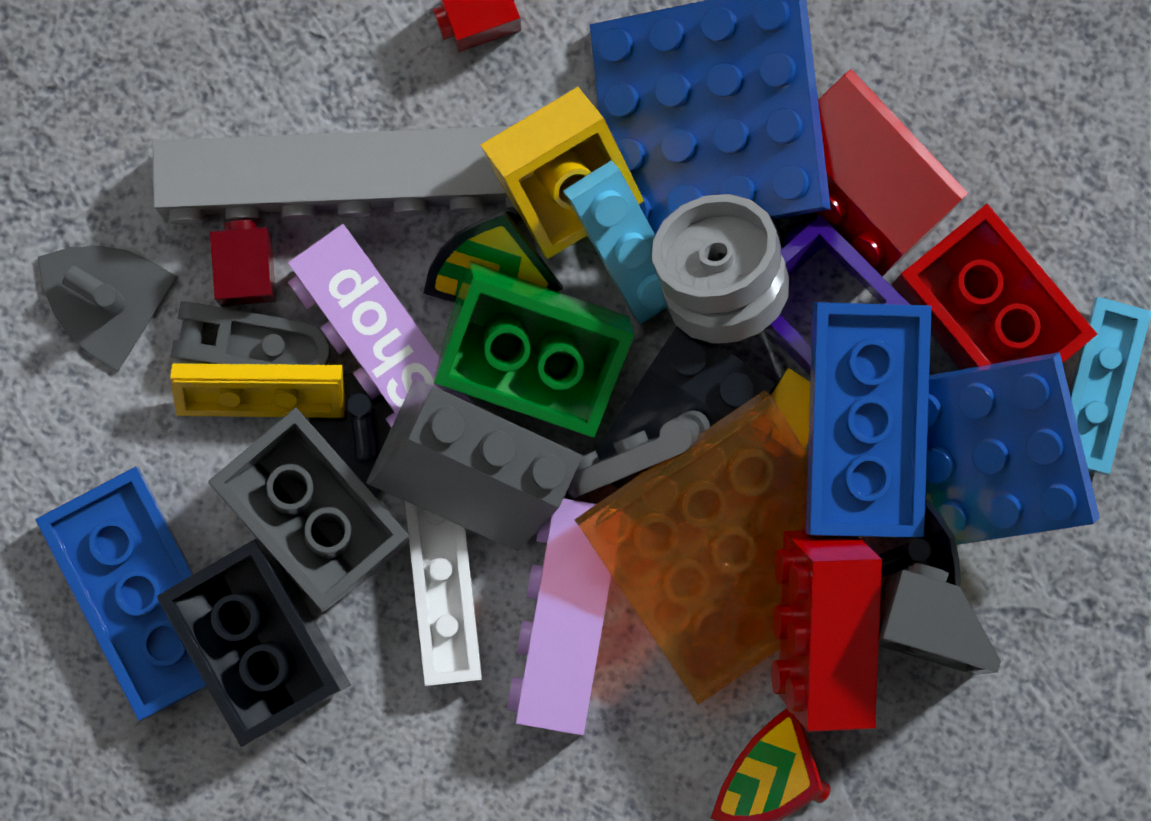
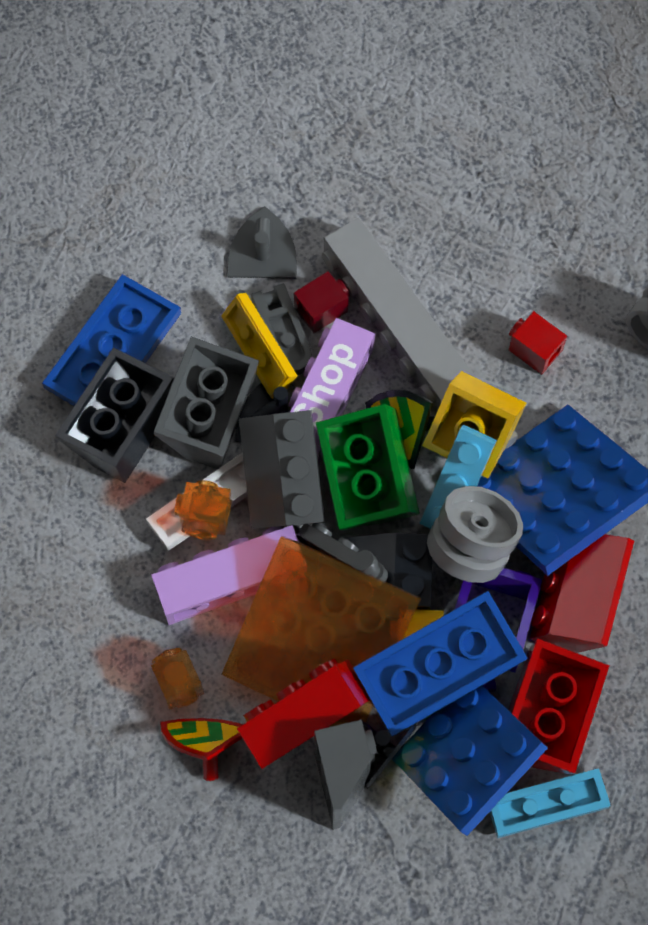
camera: 60 degrees right, 15 degrees down
(466, 603) = (204, 509): none -> clear orange brick
(672, 766) = (177, 678): none -> clear orange brick

